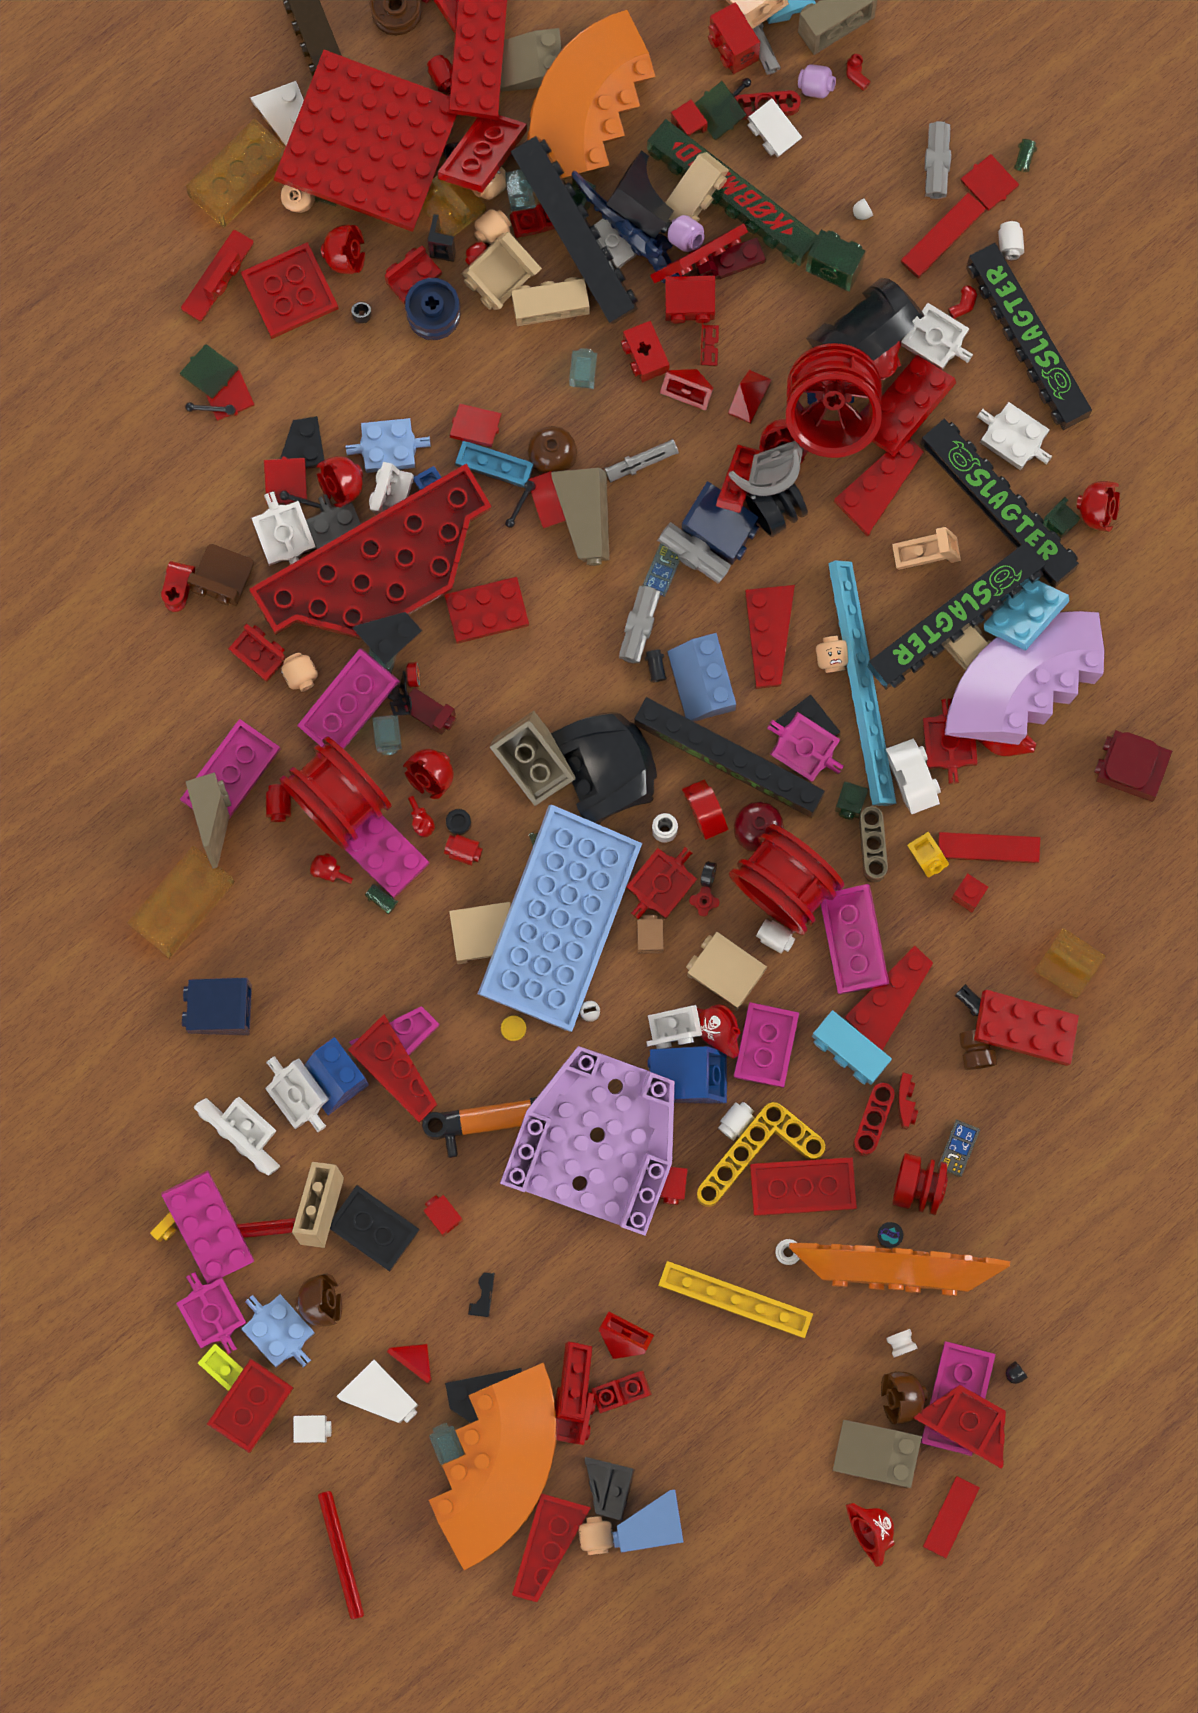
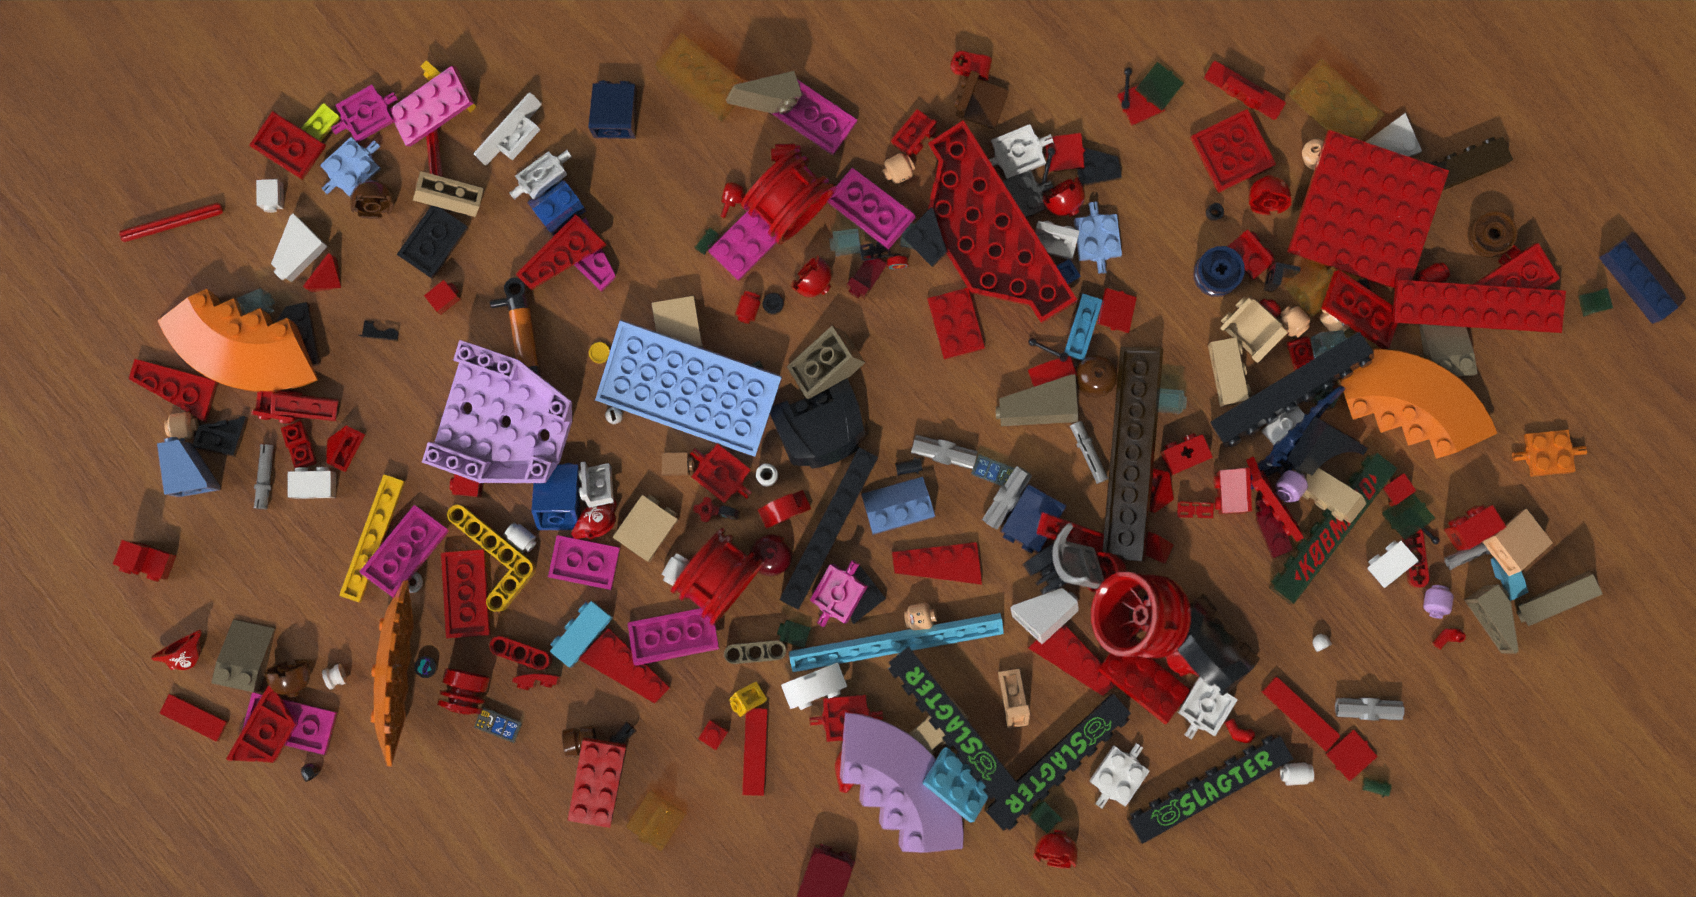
camera: 90 degrees right, 5 degrees up
(422, 821) = (770, 273): red piece -> none
(642, 410) = (1133, 452): none -> dark brown plate
(659, 1433) = (263, 477): none -> light grey pin
(669, 1372) = (312, 484): none -> white brick
(752, 1258) = (404, 551): none -> dark pink plate
(761, 1574) = (139, 557): none -> red brick
(829, 512) = (1046, 613): none -> white slope
(835, 259) = (1273, 618): clear green brick -> none

